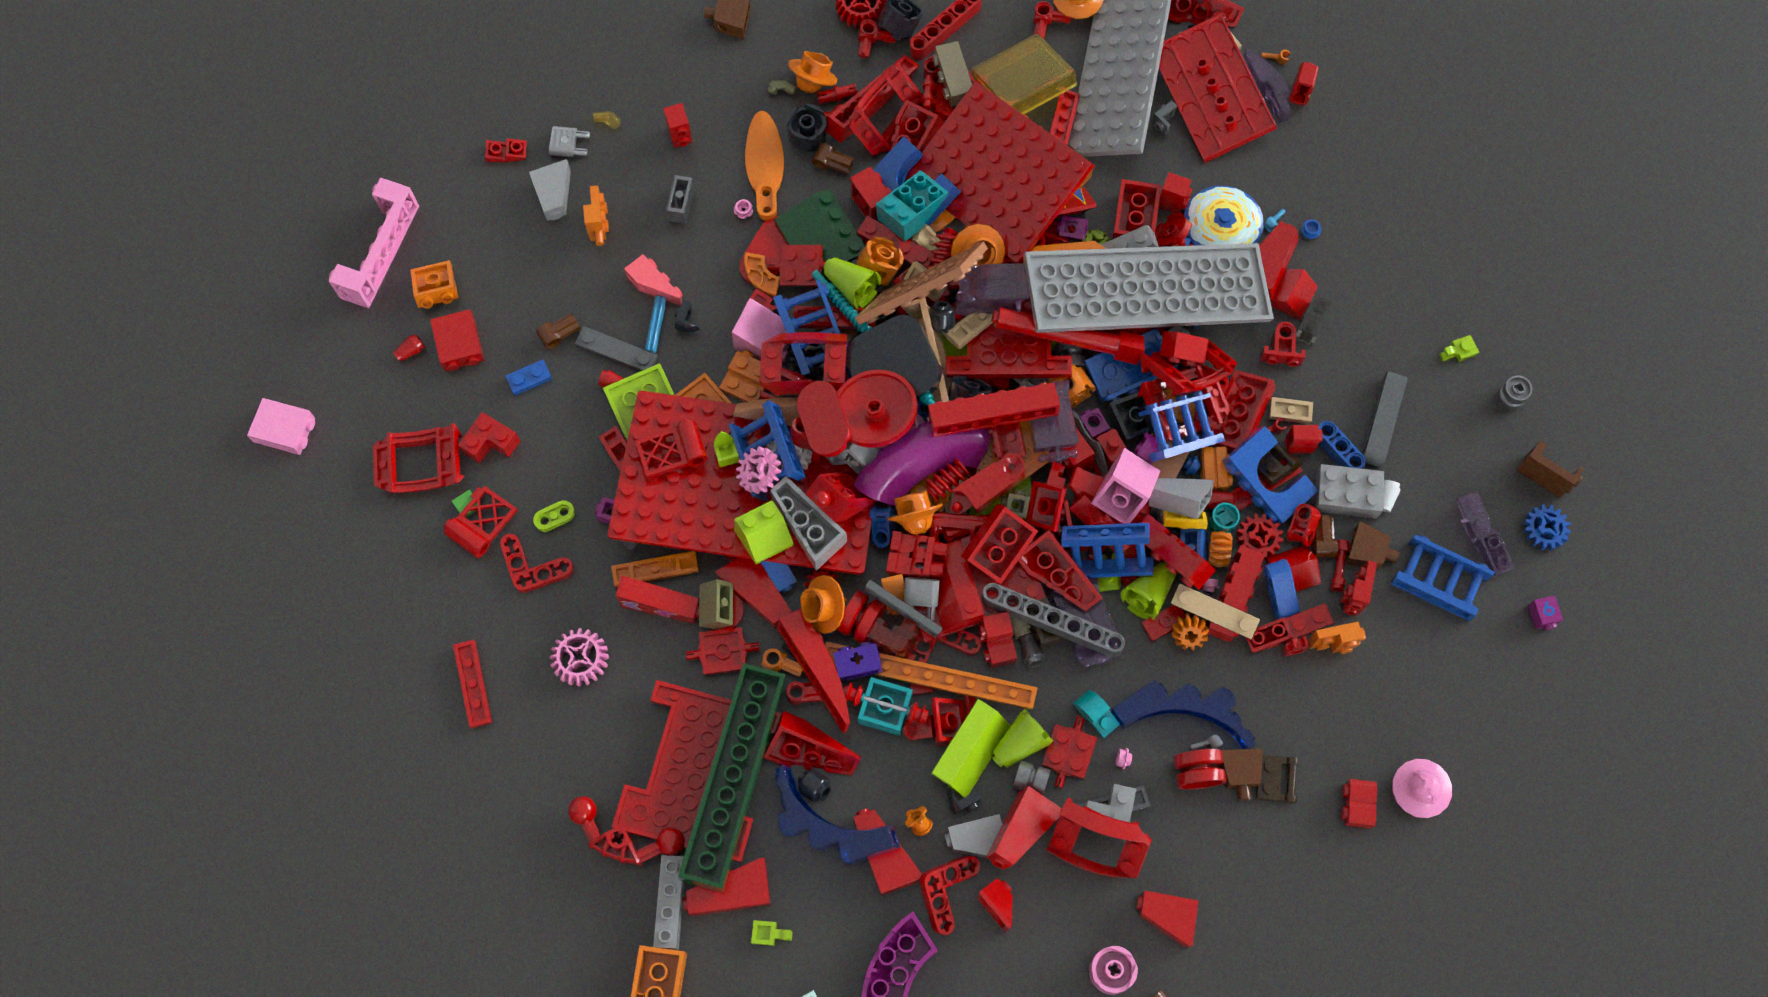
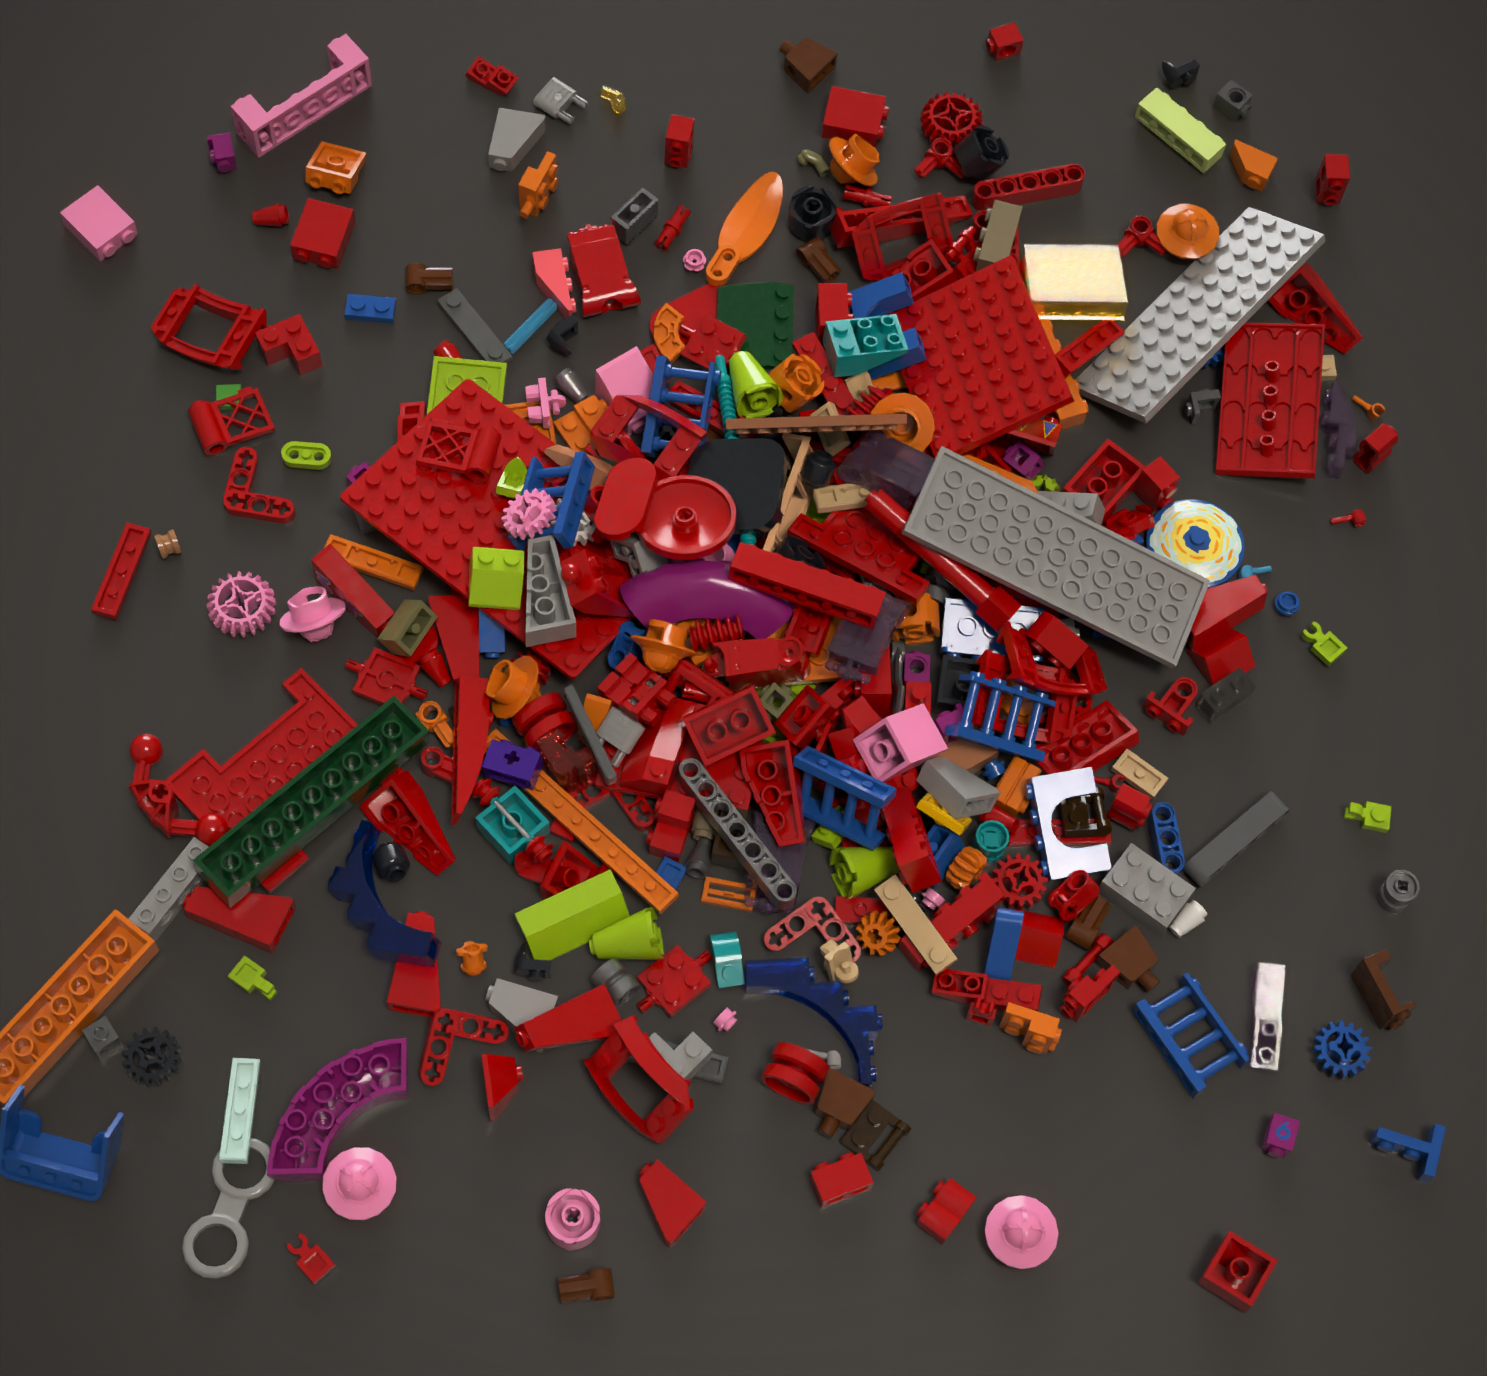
camera: 25 degrees right, 5 degrees down
(340, 319) = (222, 152): none -> magenta brick
(494, 643) = (167, 544): none -> medium nougat wheel
(640, 635) = (312, 618): none -> bright pink helmet
(681, 254) = (601, 270): none -> red piece
(698, 372) = (541, 413): none -> bright pink hips
(712, 193) = (672, 228): none -> red pin
(715, 353) = (570, 384): none -> flat silver cone
(751, 620) = (434, 665): none -> red cone
(790, 37) = (854, 113): none -> red brick
(1016, 673) = (671, 872): none -> blue tile
(1049, 671) = (722, 902): none -> orange tile
(1137, 651) = (811, 920): none -> beam
(1178, 670) = (839, 962): none -> tan hips
(1276, 826) = (840, 1179): none -> red brick
(1319, 140) = (1357, 517): none -> red hand
(1357, 245) = (1325, 646): none -> lime plate
(1580, 727) = (1237, 1272): none -> red slope
(1646, 565) = (1413, 1148): none -> blue bracket

